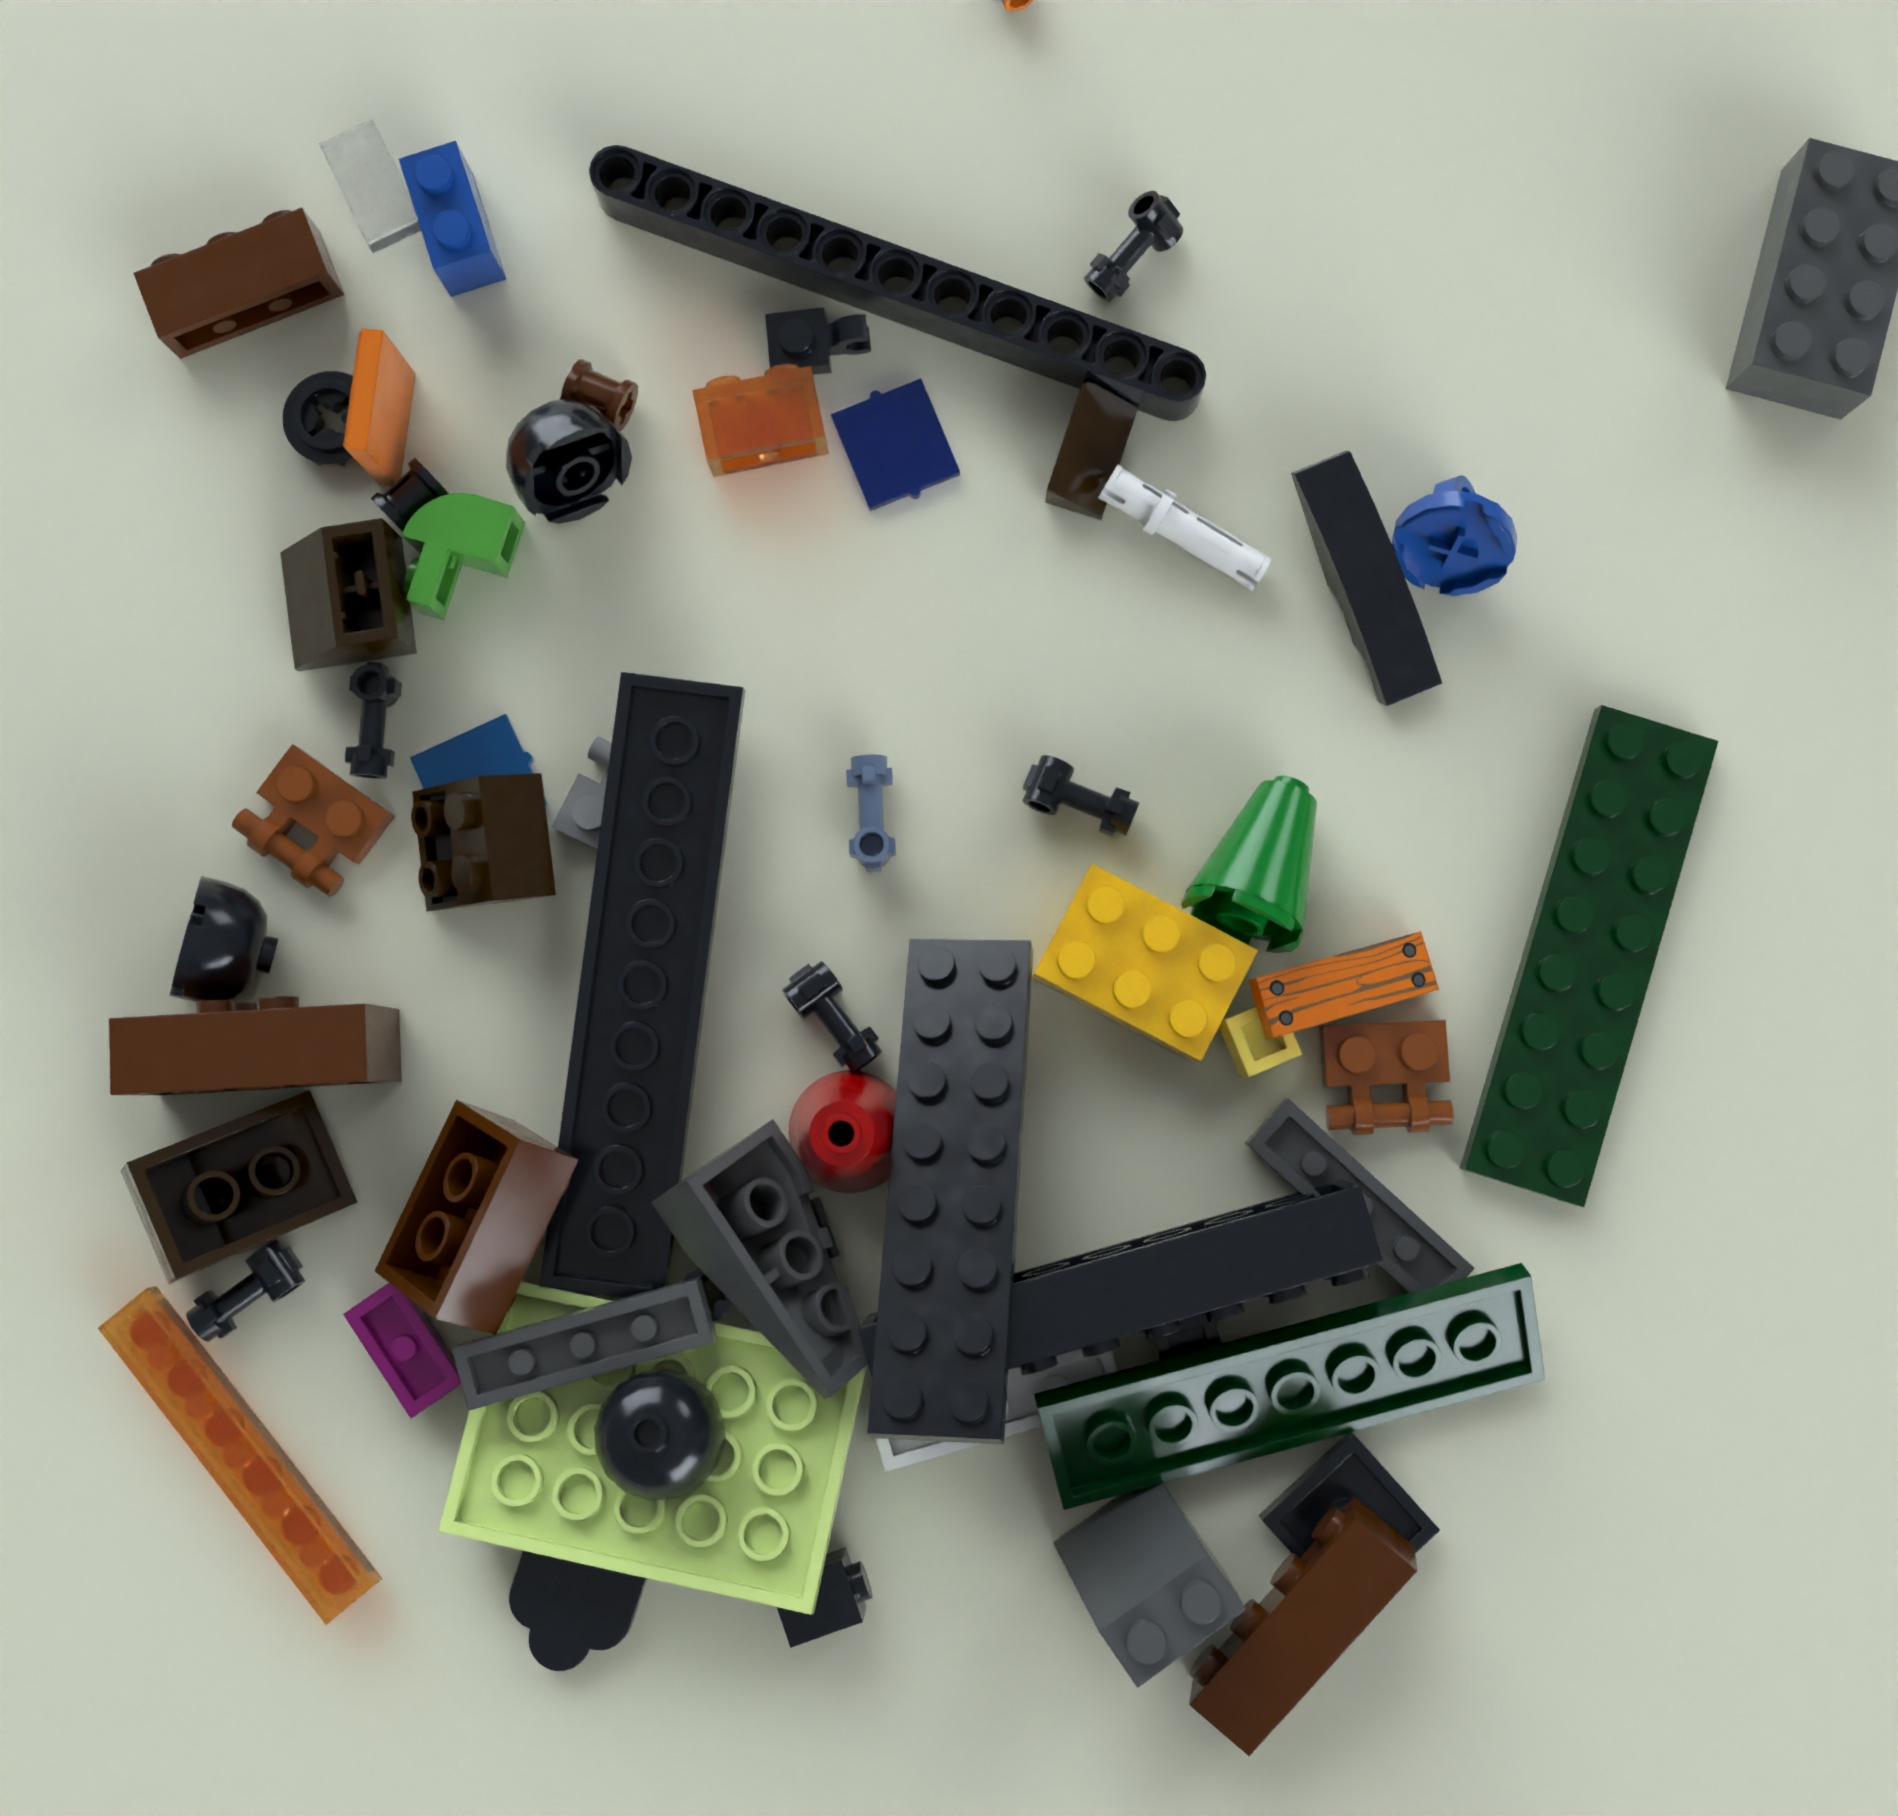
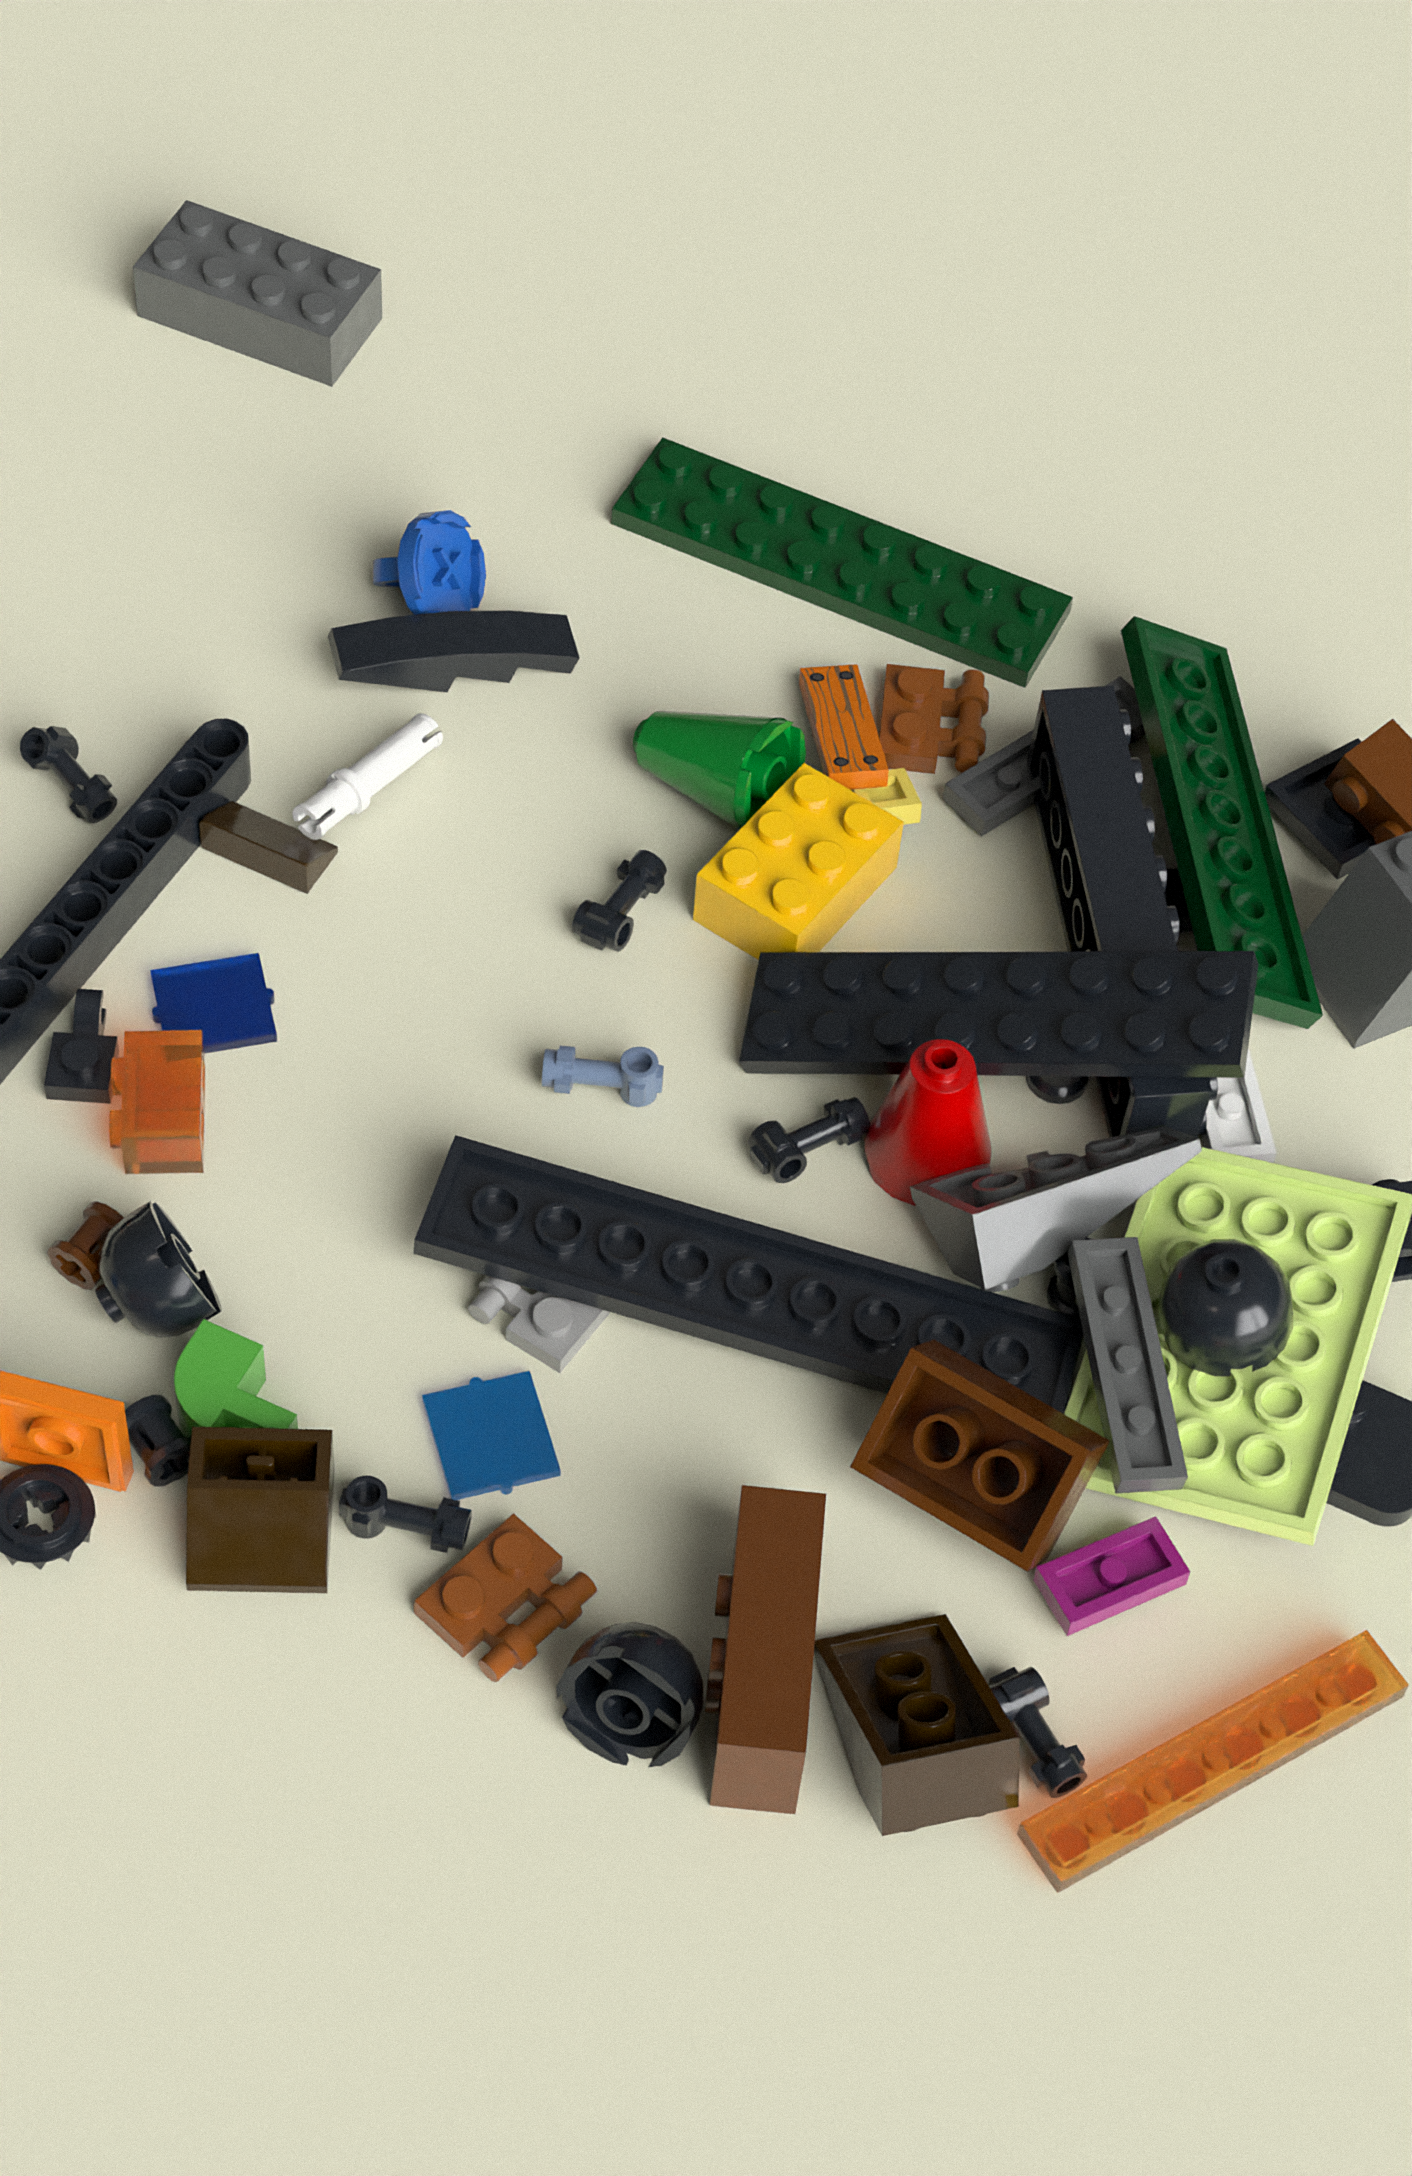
camera: 90 degrees left, 30 degrees down
(483, 841) = (568, 1420): dark brown slope -> none

